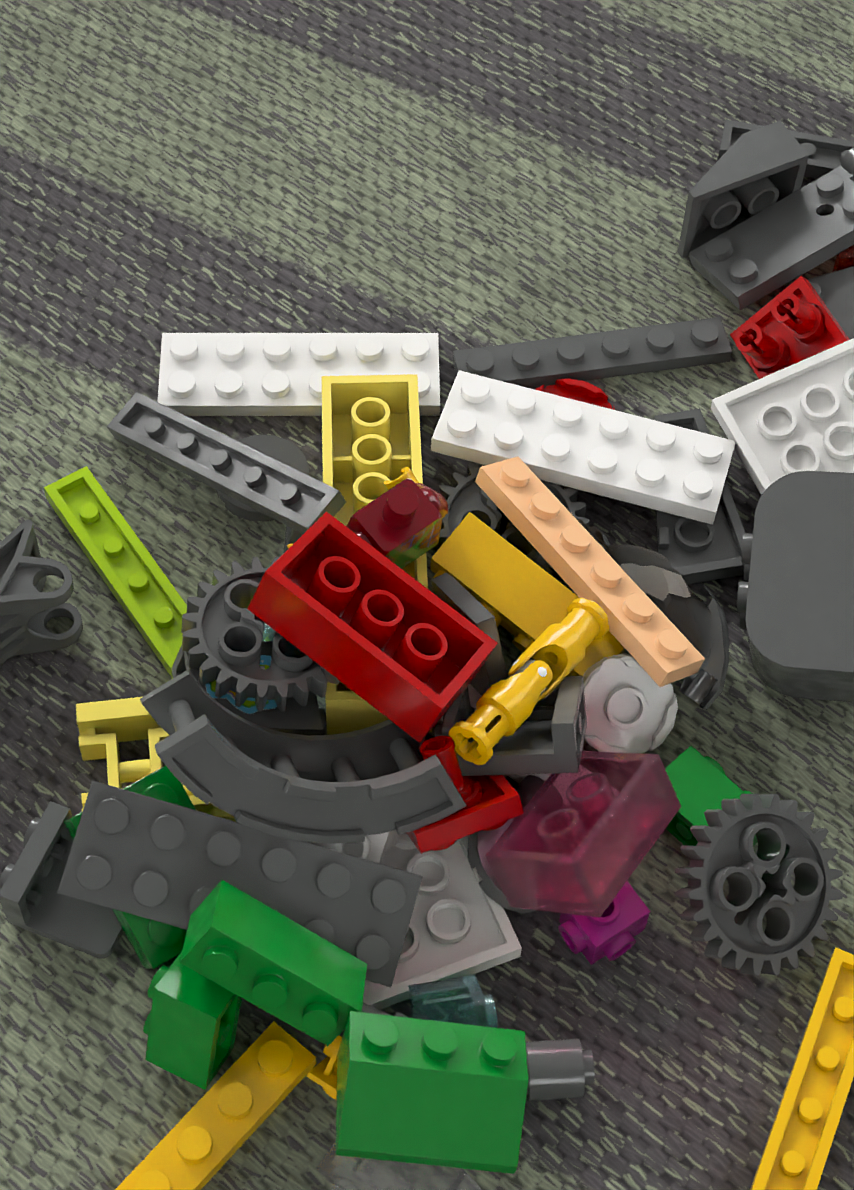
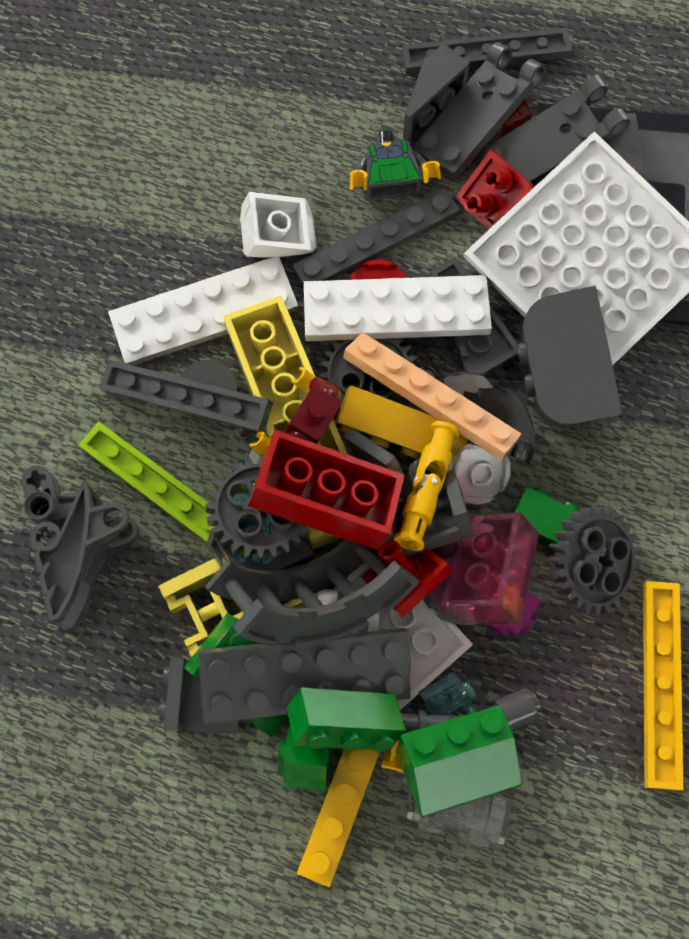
camera: 15 degrees left, 15 degrees up
(451, 293) = (276, 226): none -> white slope
(646, 270) = (392, 169): none -> torso

